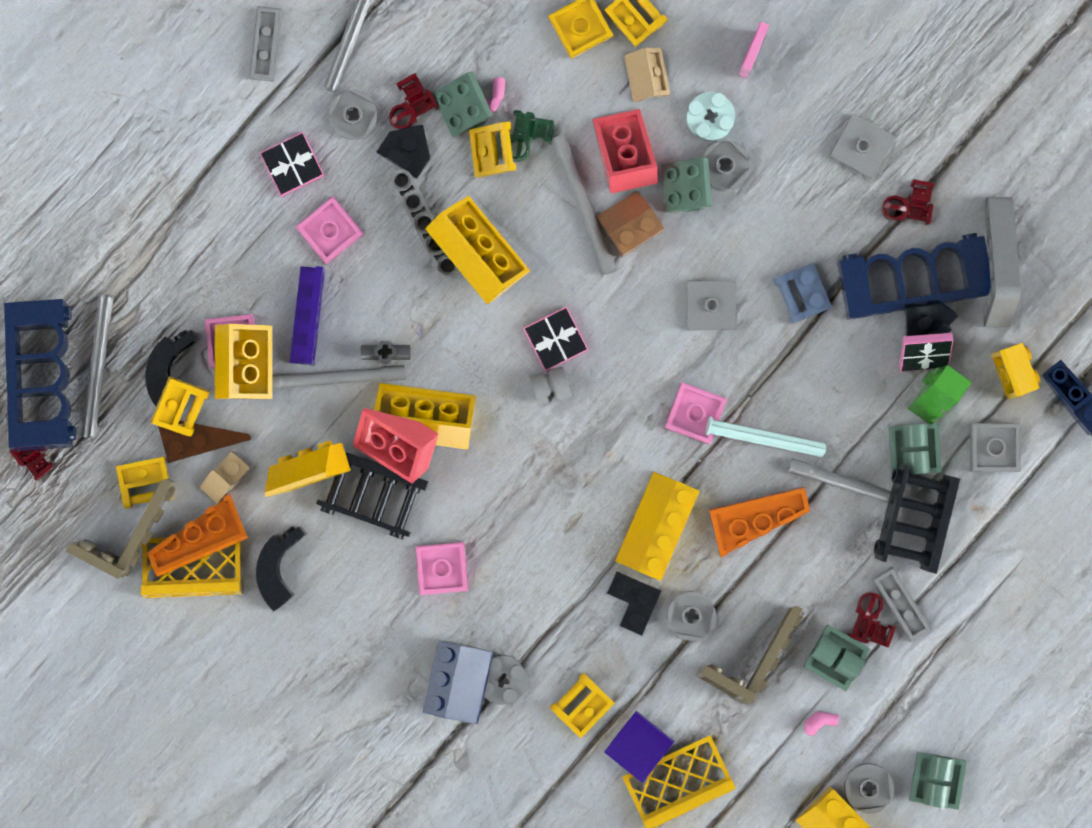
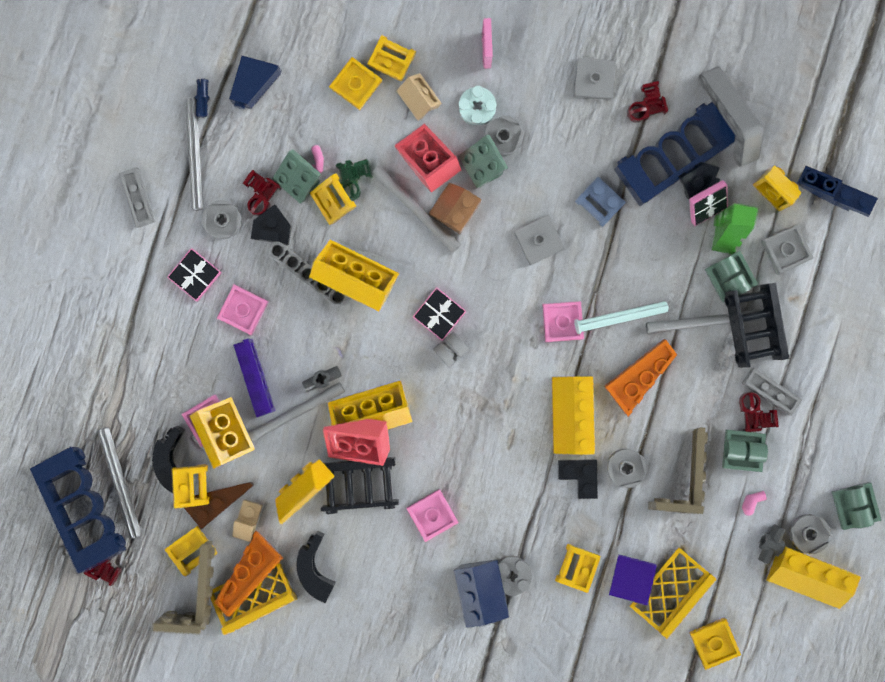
camera: 20 degrees left, 0 degrees up
(819, 780) = (771, 544): none -> dark grey axle

